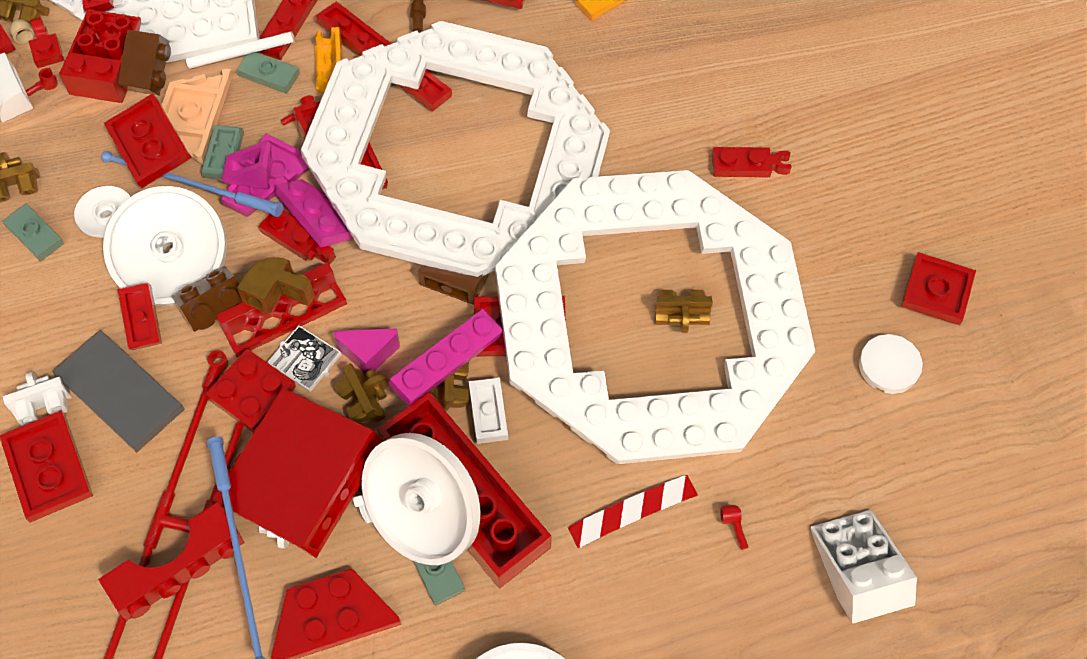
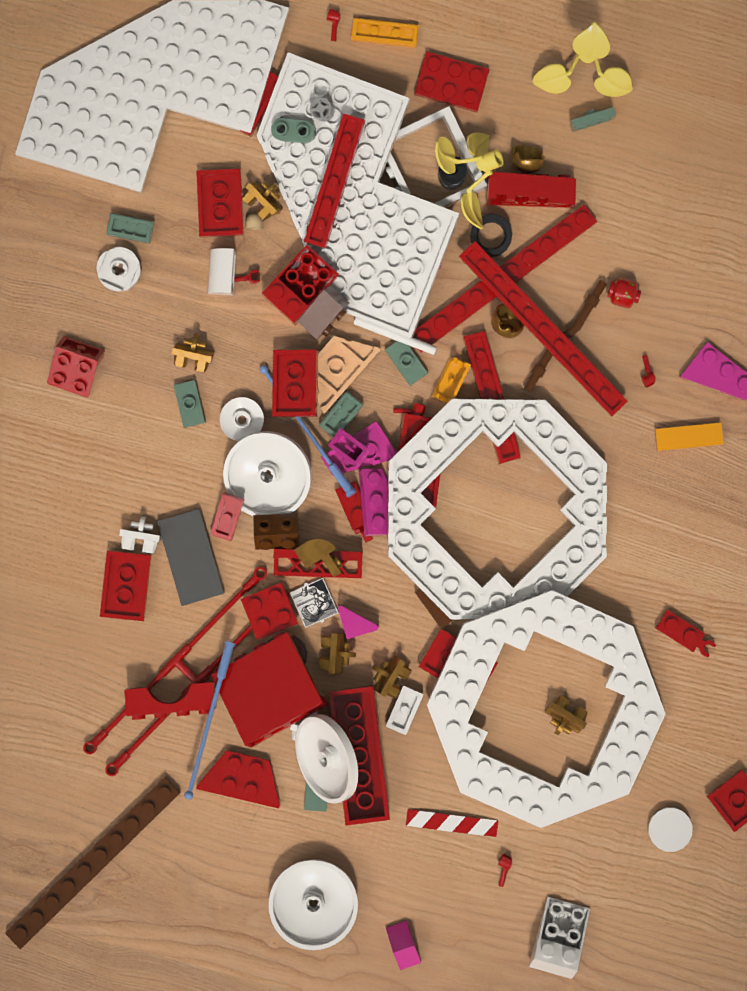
camera: 30 degrees right, 25 degrees up
(46, 47) = (264, 247): red plate -> none
(445, 357) = (397, 667): dark pink plate -> none

